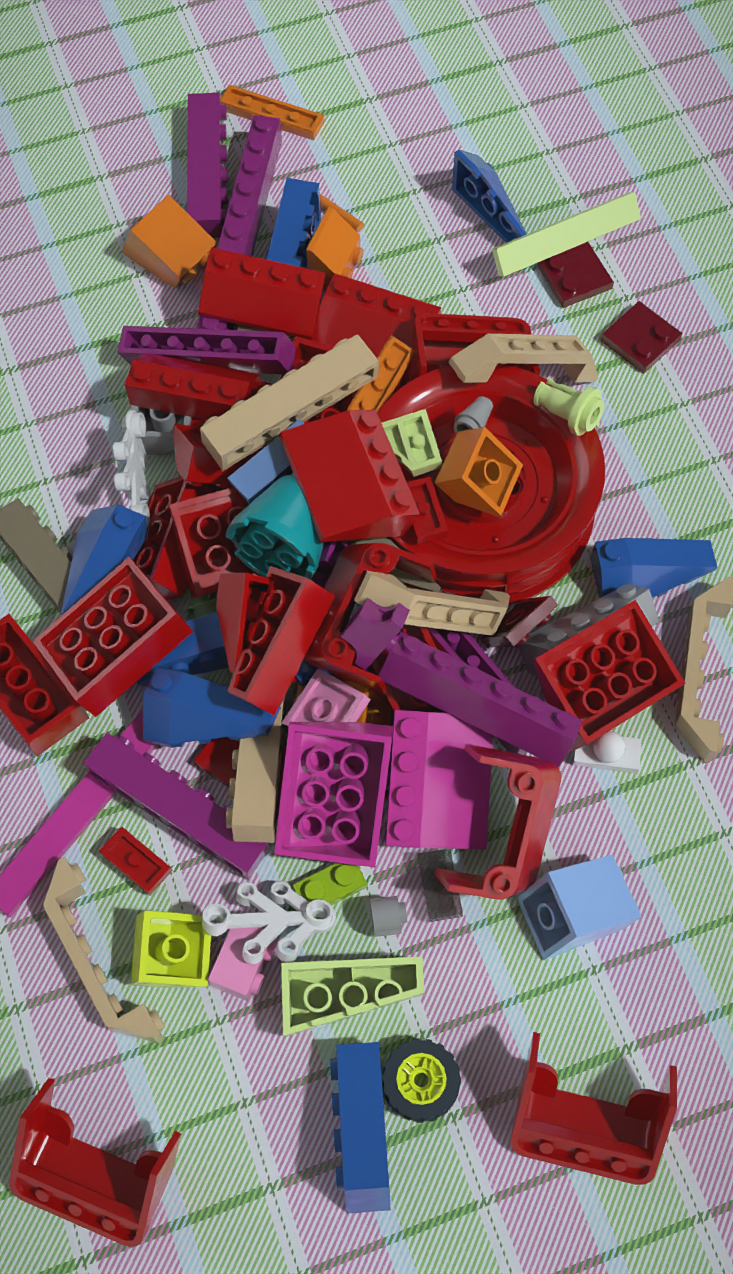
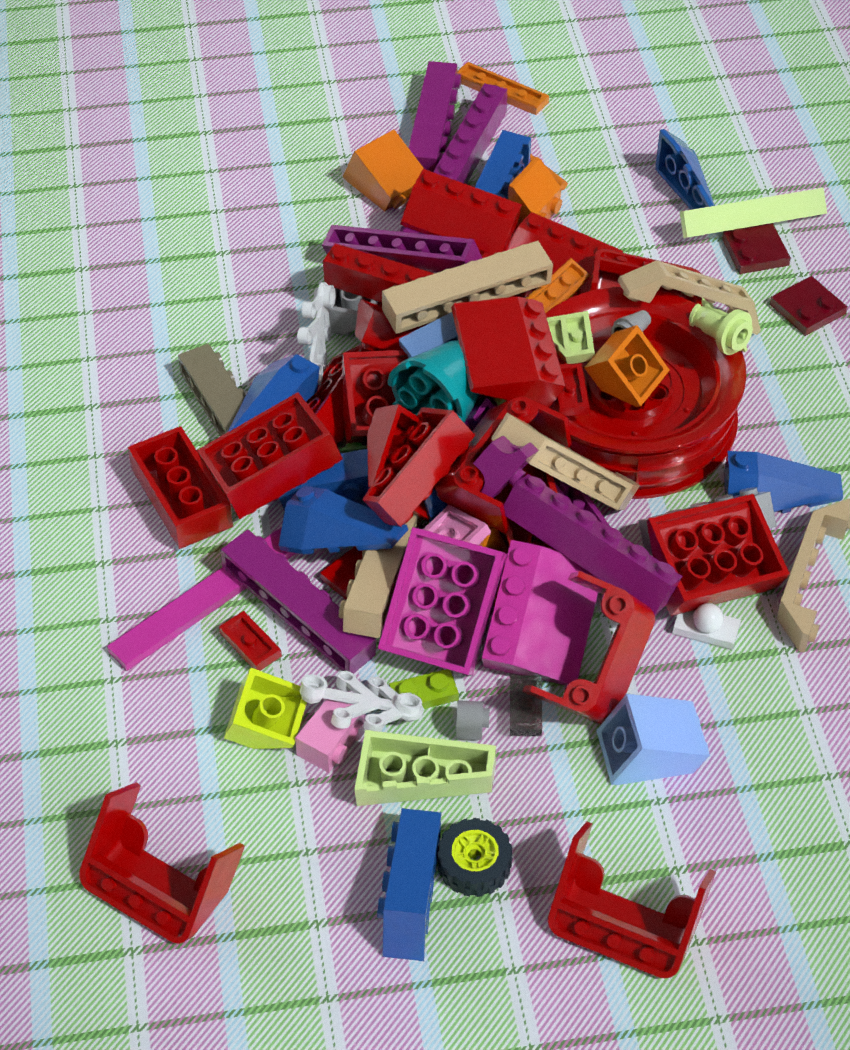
camera: 10 degrees right, 15 degrees down
(62, 890) = (216, 766): tan slope -> none
(520, 621) = (640, 507): dark red plate -> none

